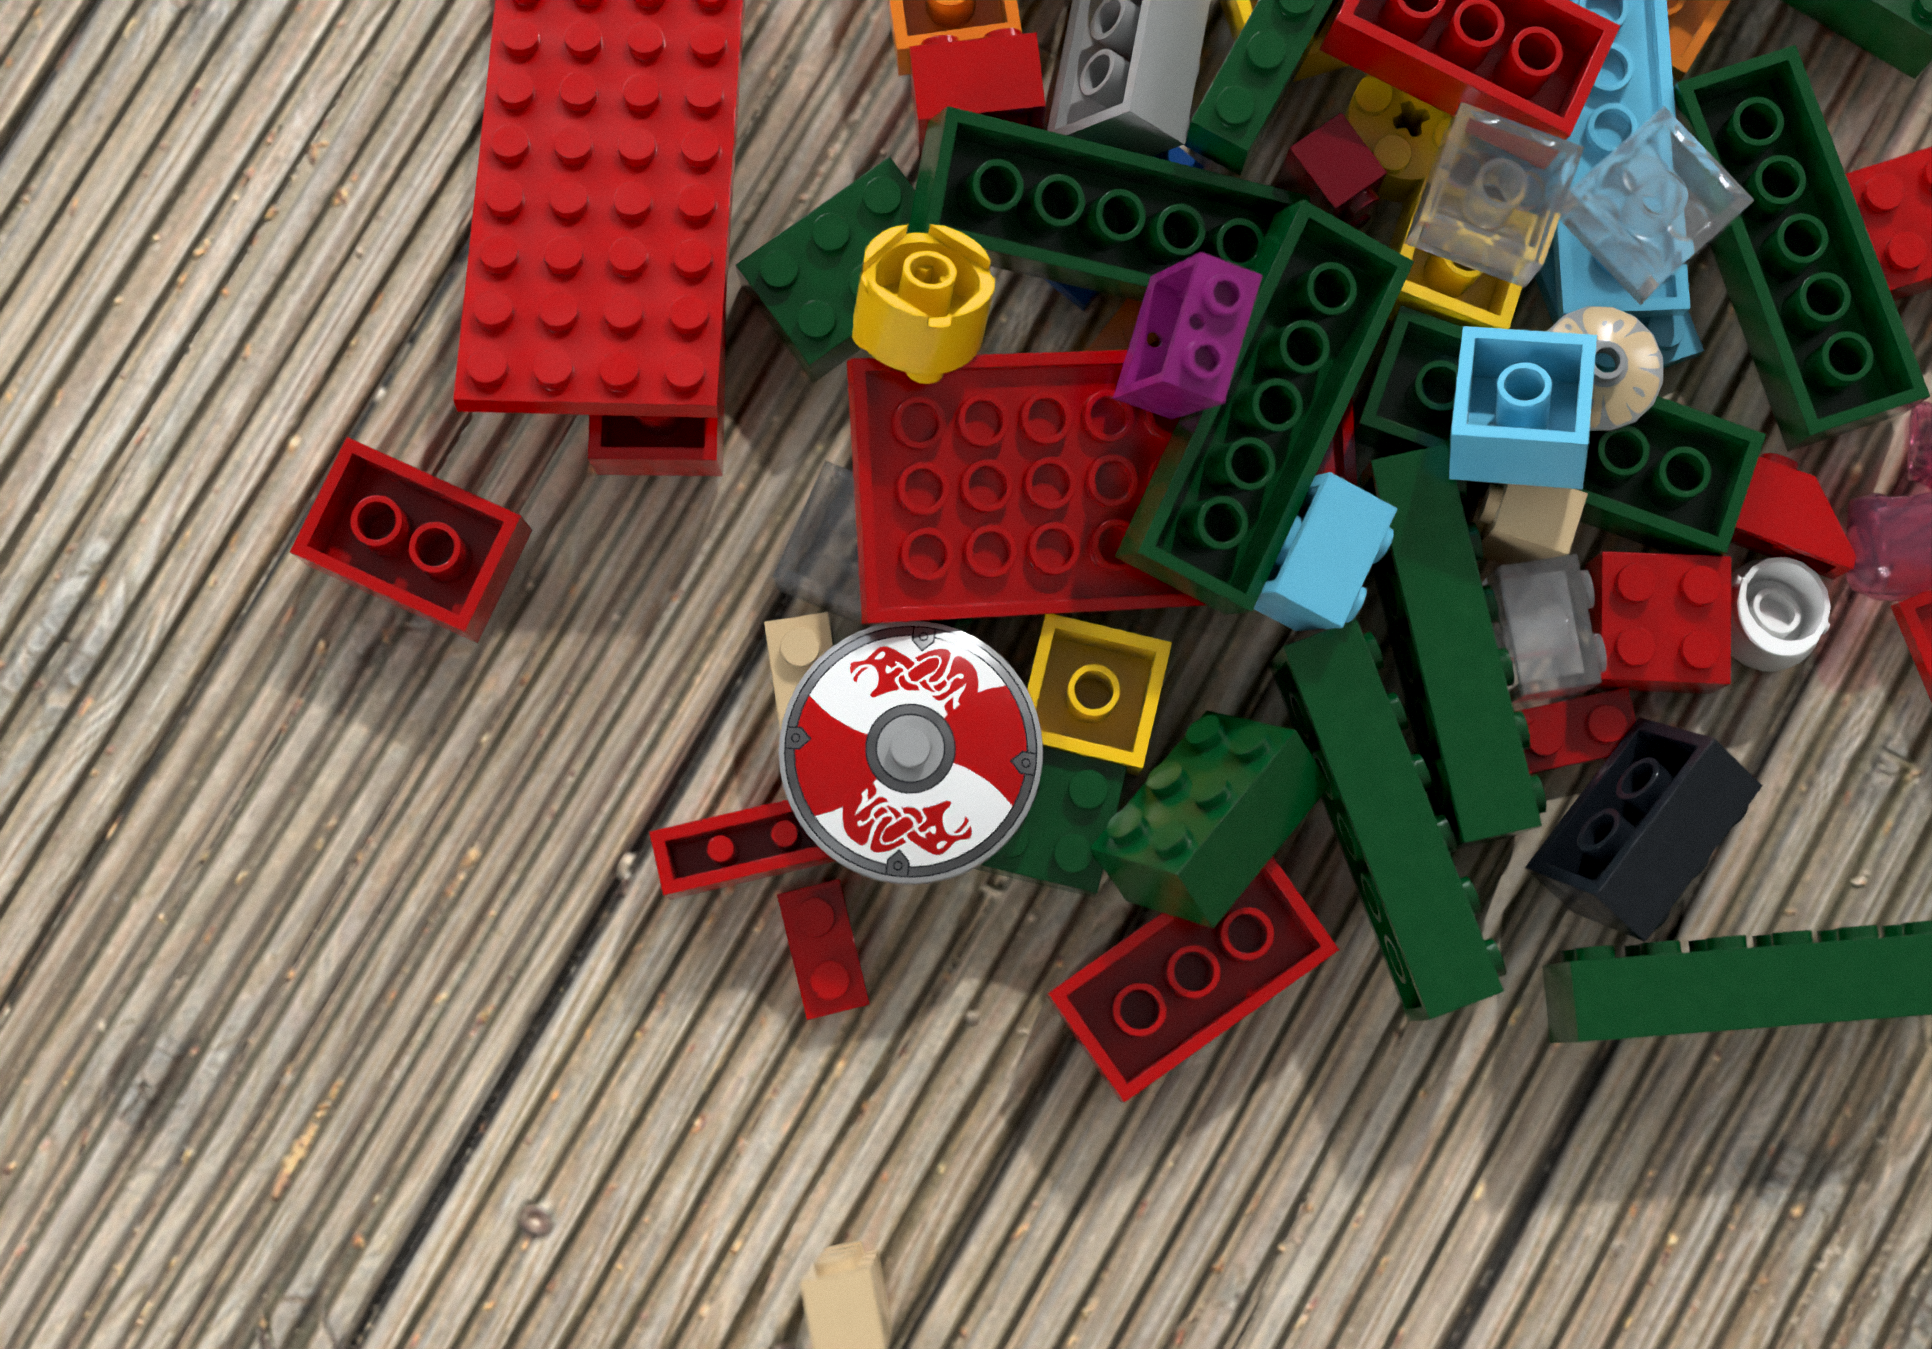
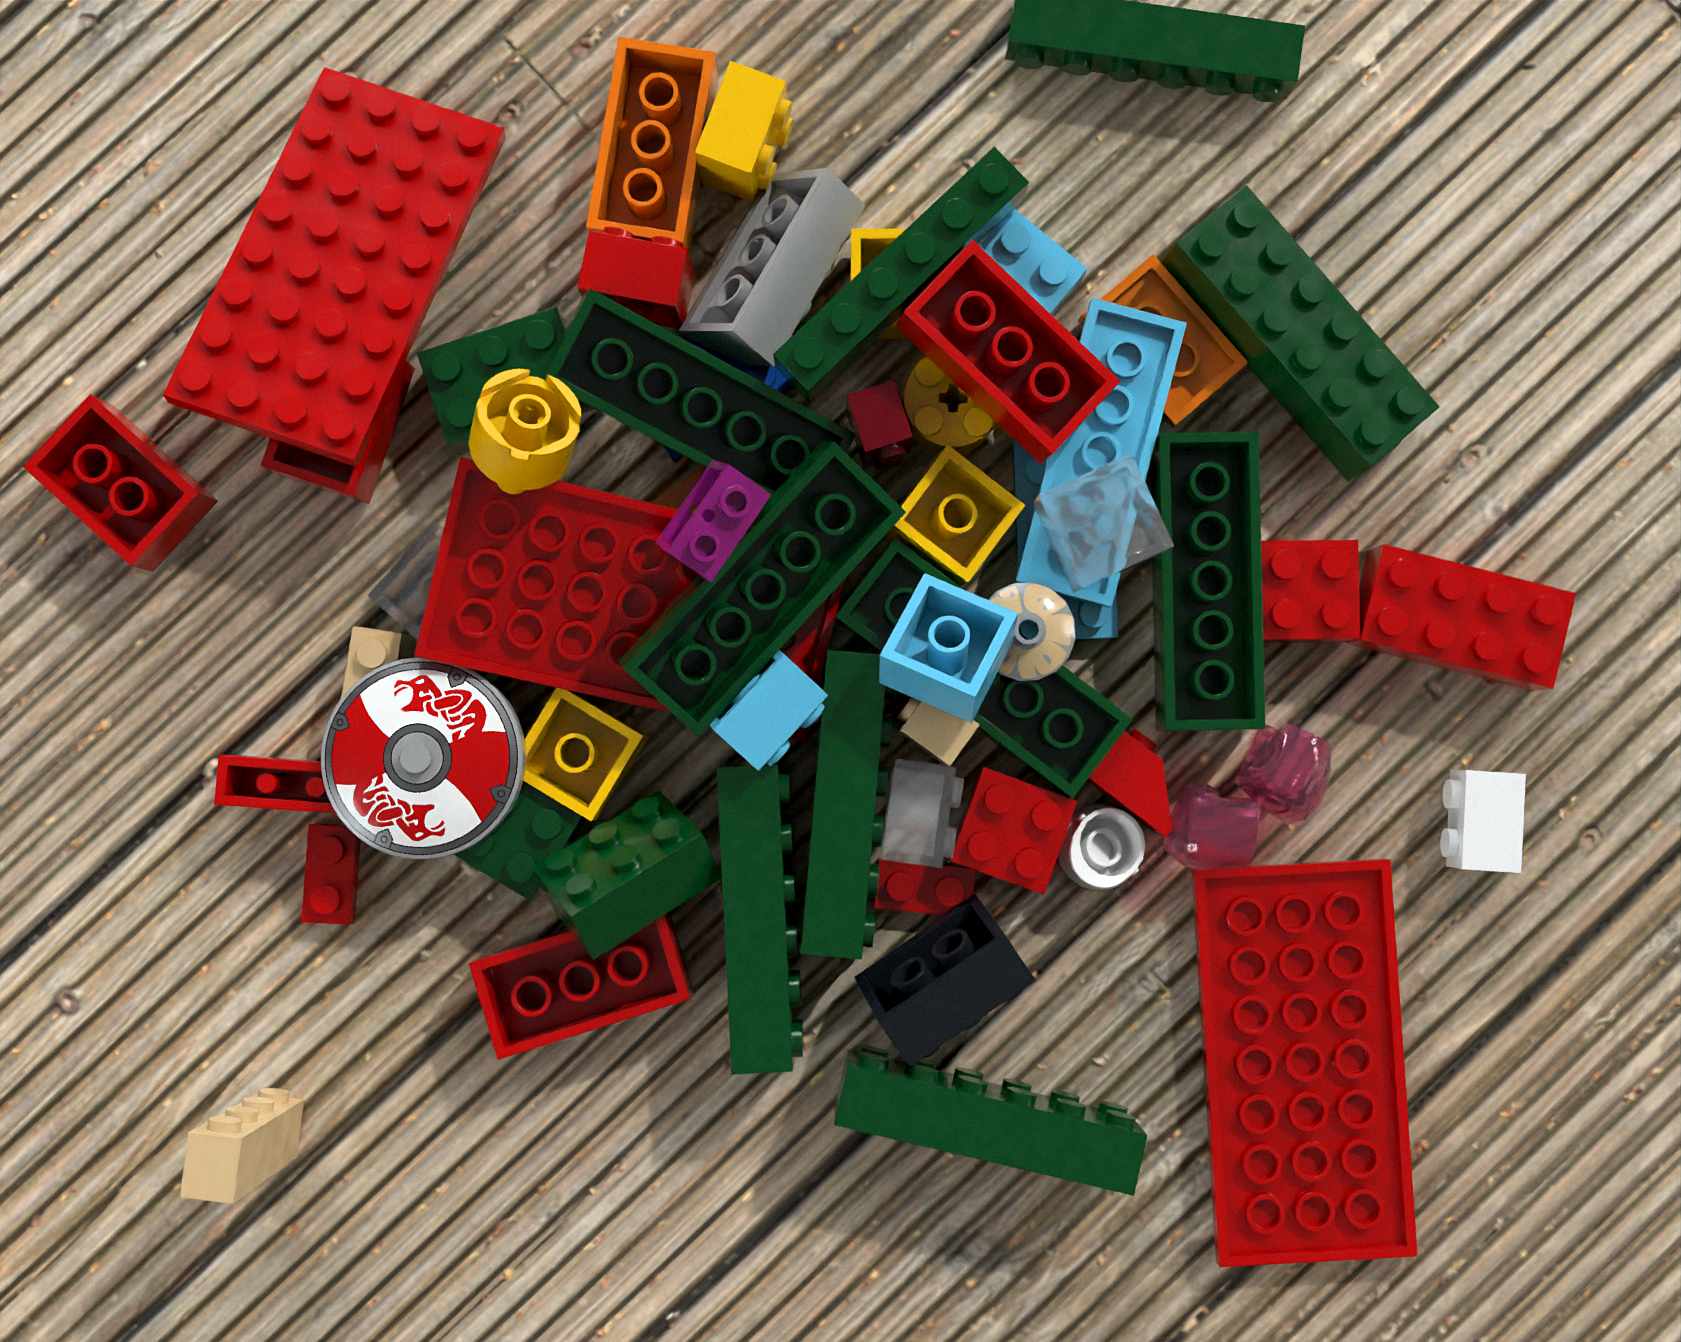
camera: 20 degrees right, 5 degrees up
(1494, 195) = (984, 478): clear brick -> none

